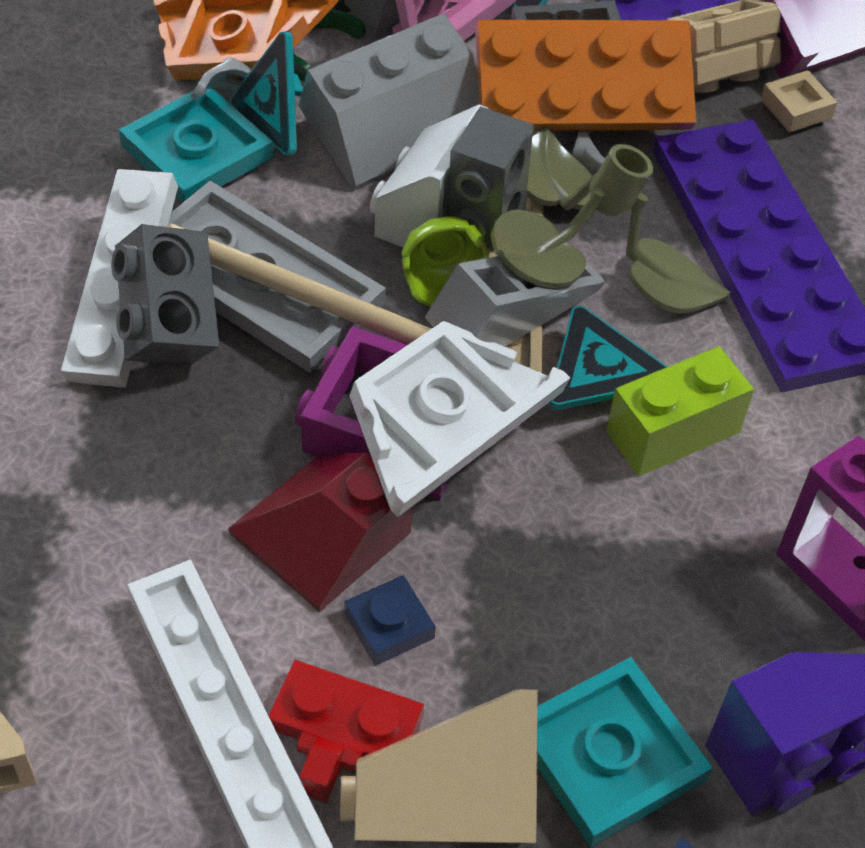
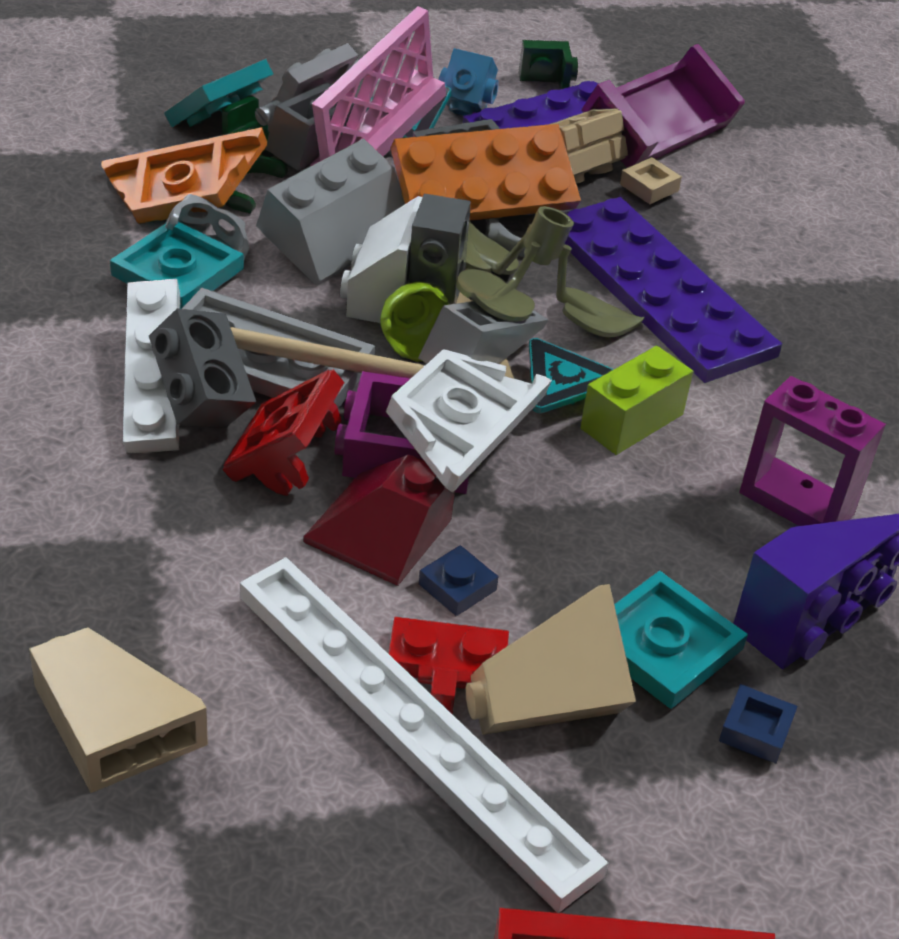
camera: 15 degrees left, 10 degrees down
(253, 375) = (270, 448): none -> red piece
(269, 94) = (235, 215): piece -> none

